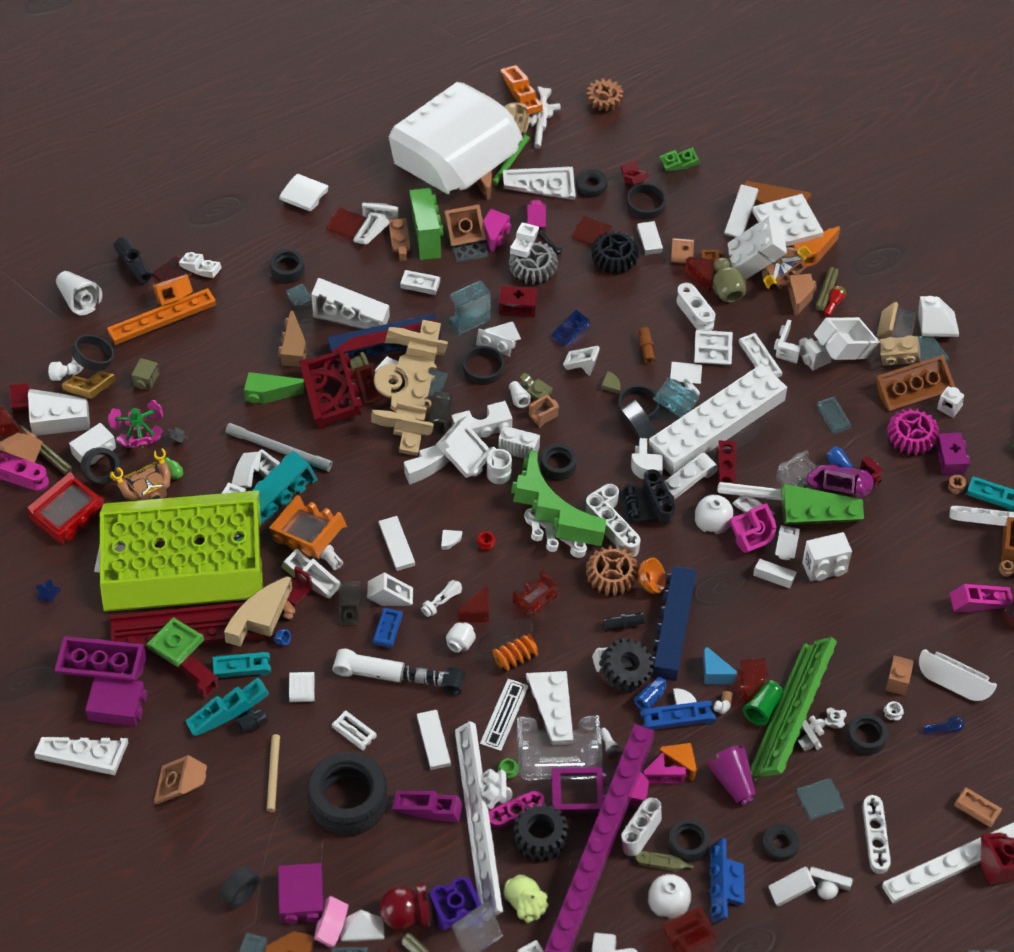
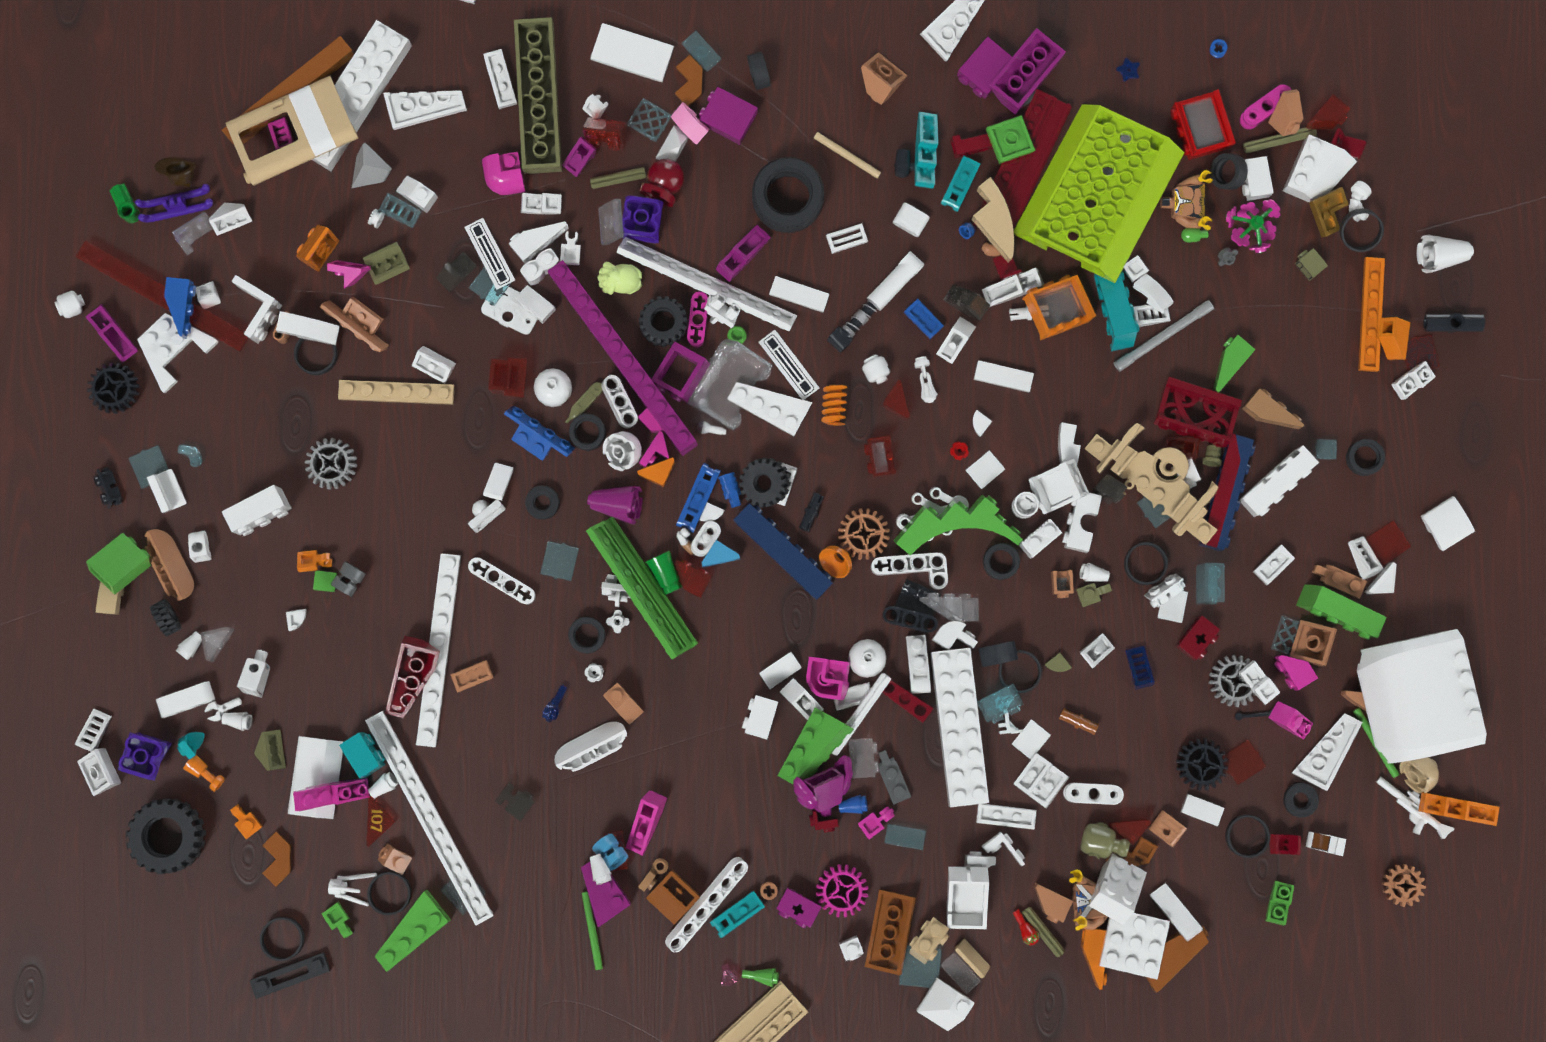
camera: 120 degrees right, 30 degrees up
(487, 516) = (985, 469): none -> white sticker
(611, 151) = (1326, 843): none -> leg
(622, 468) = (954, 608): none -> clear slope
(684, 794) = (622, 450): none -> white cylinder
(711, 686) = (705, 539): none -> white plate
(796, 444) = (893, 778): none -> dark grey hinge
(843, 439) = (871, 824): none -> dark pink plate

